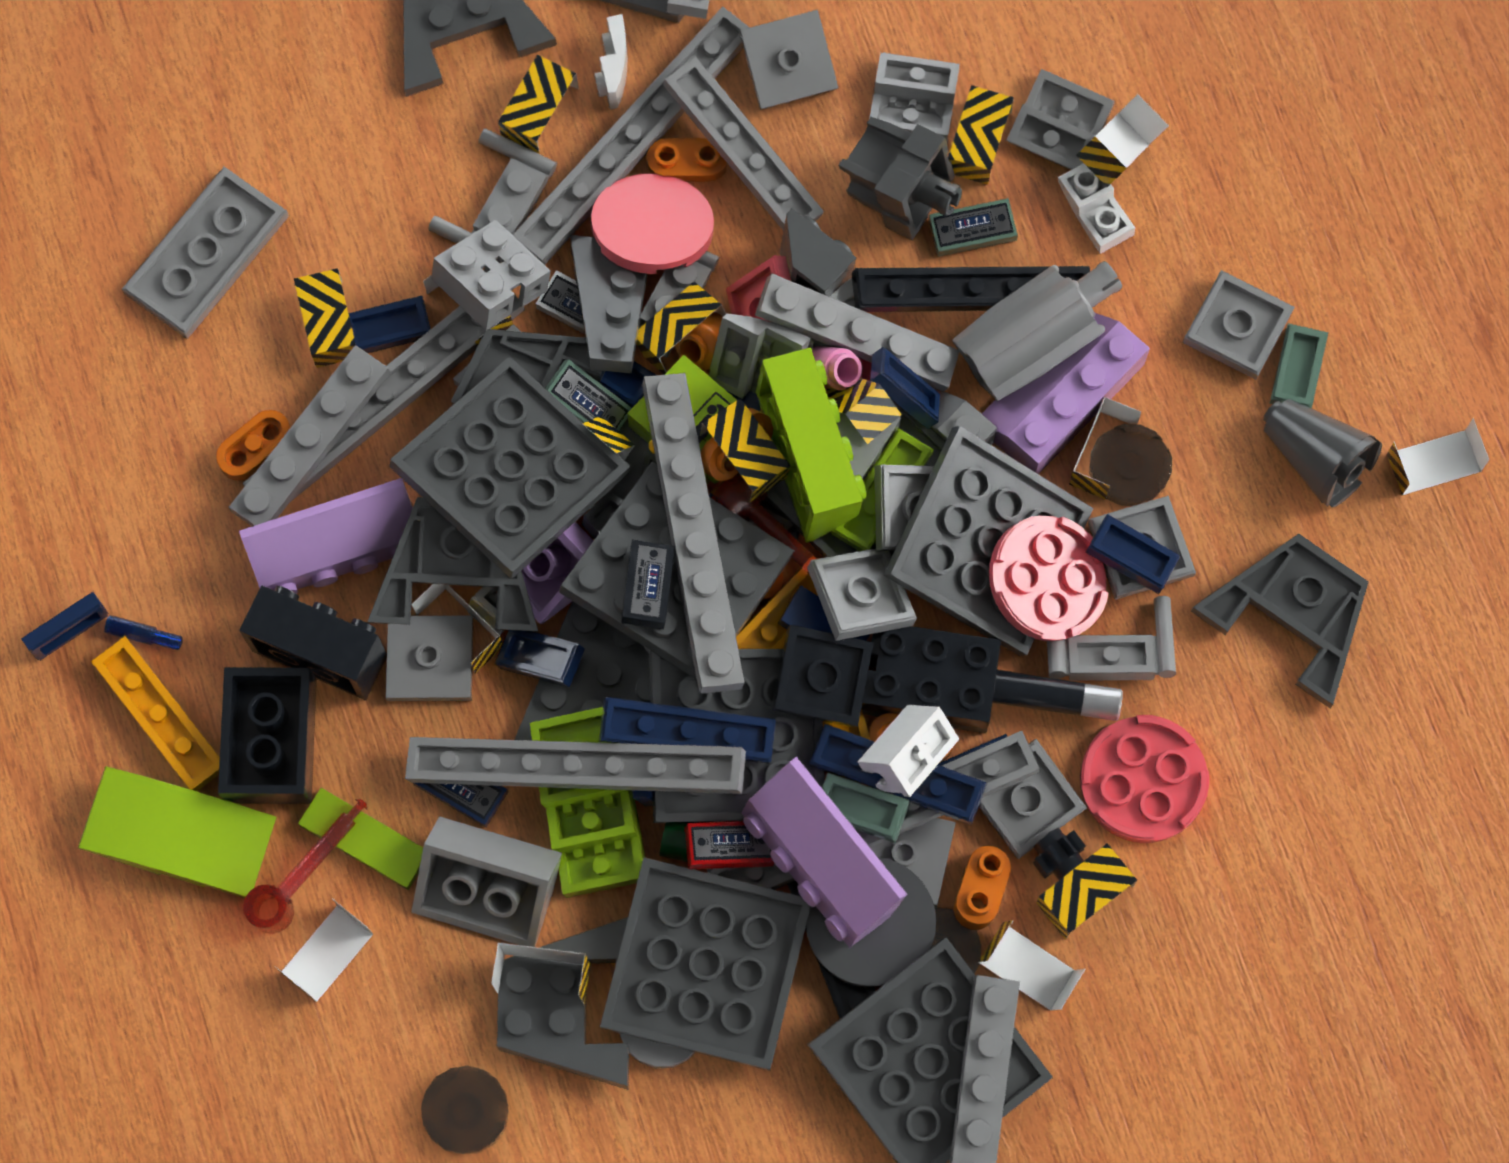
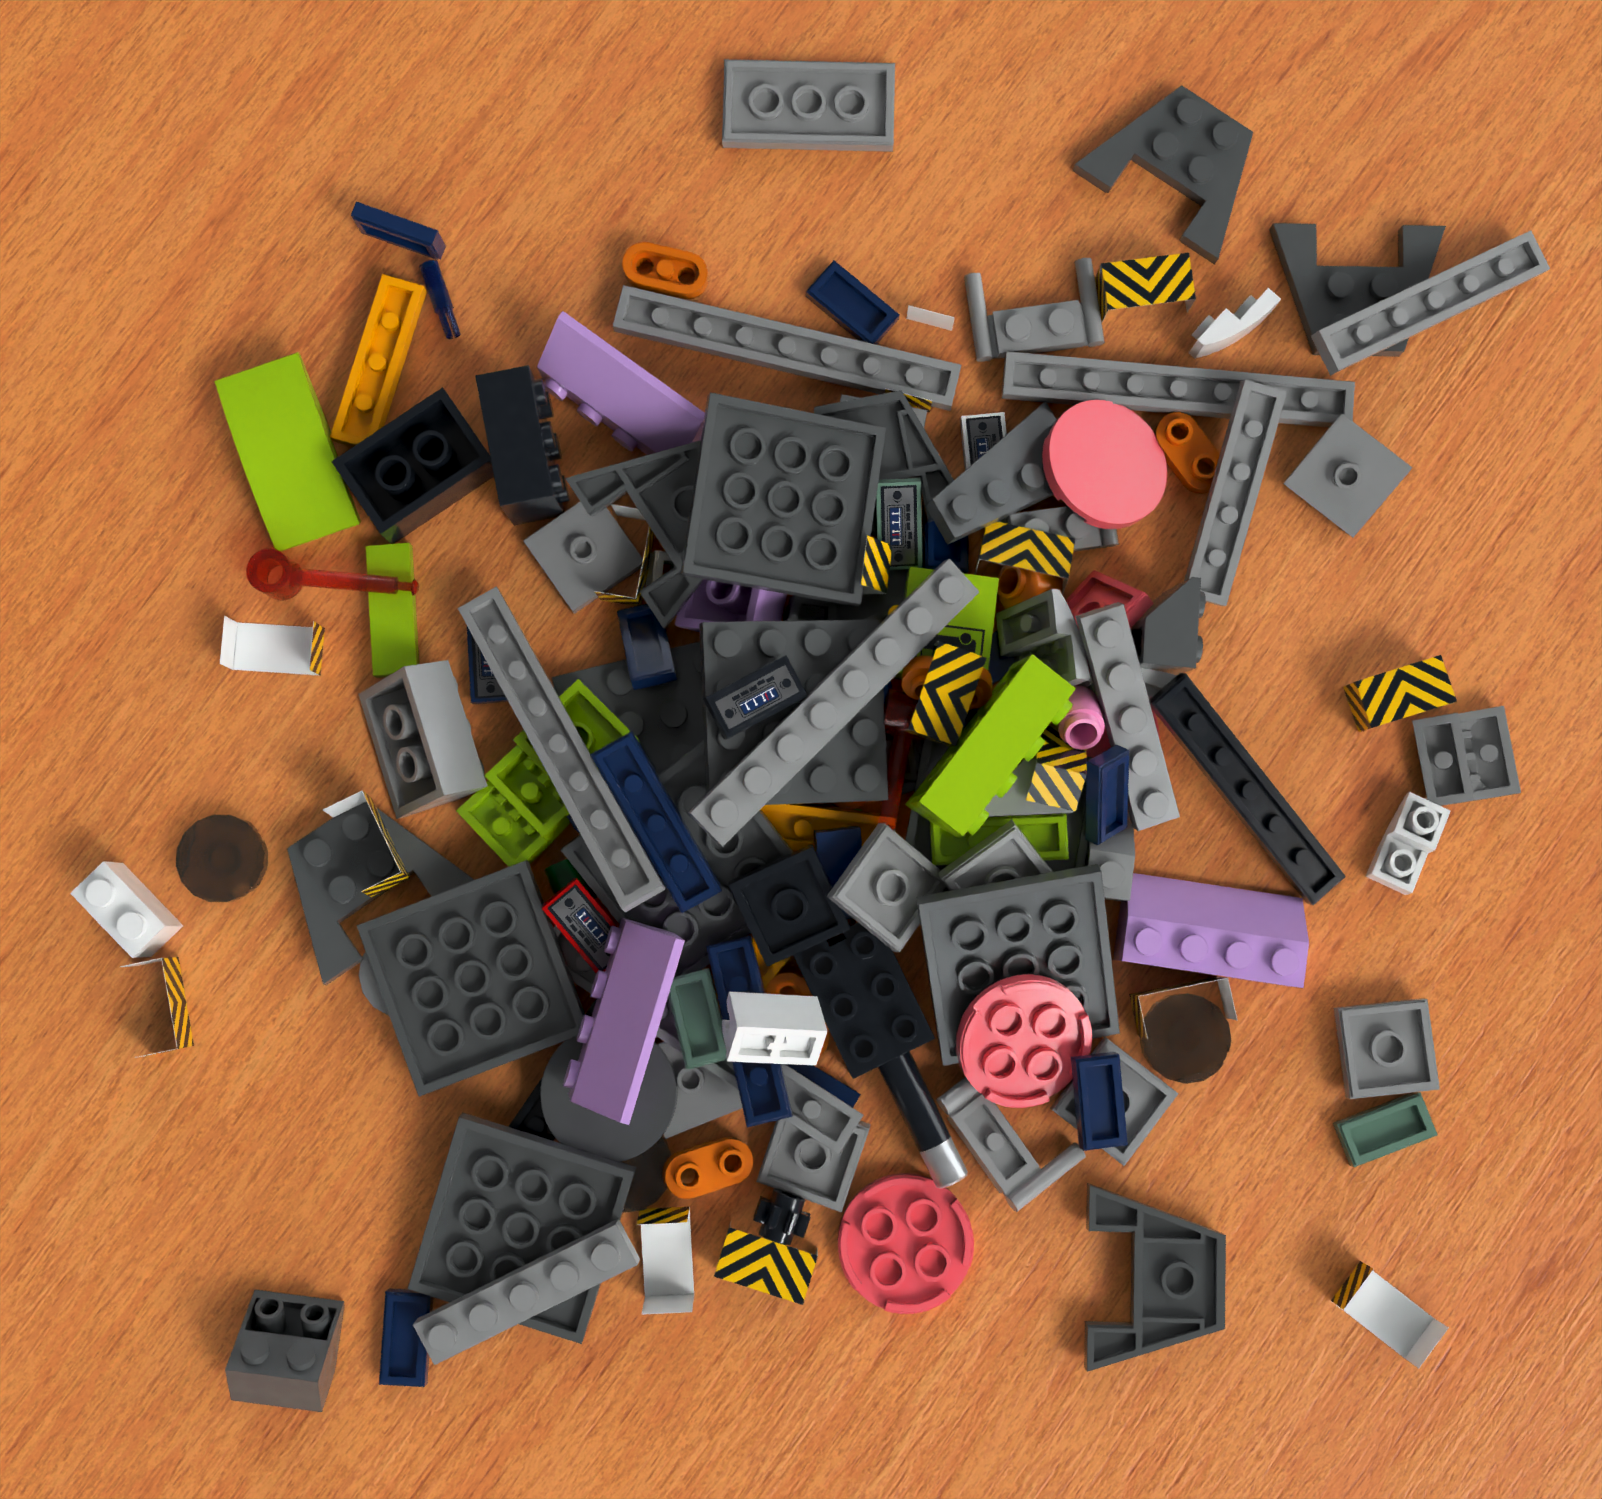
camera: 55 degrees right, 10 degrees up
(310, 438) = (699, 312): light grey plate -> none
(325, 316) = (818, 245): sticker -> none
(488, 292) = (933, 367): light grey piece -> none
(902, 175) = (1309, 652): dark grey piece -> none
(915, 92) = (1391, 610): light grey slope -> none
(973, 227) = (1308, 747): tile -> none
(1035, 328) = (1248, 872): light grey piece -> none
(1122, 140) = (1486, 826): white sticker -> none
(1321, 449) = (1320, 1203): dark grey cone -> none

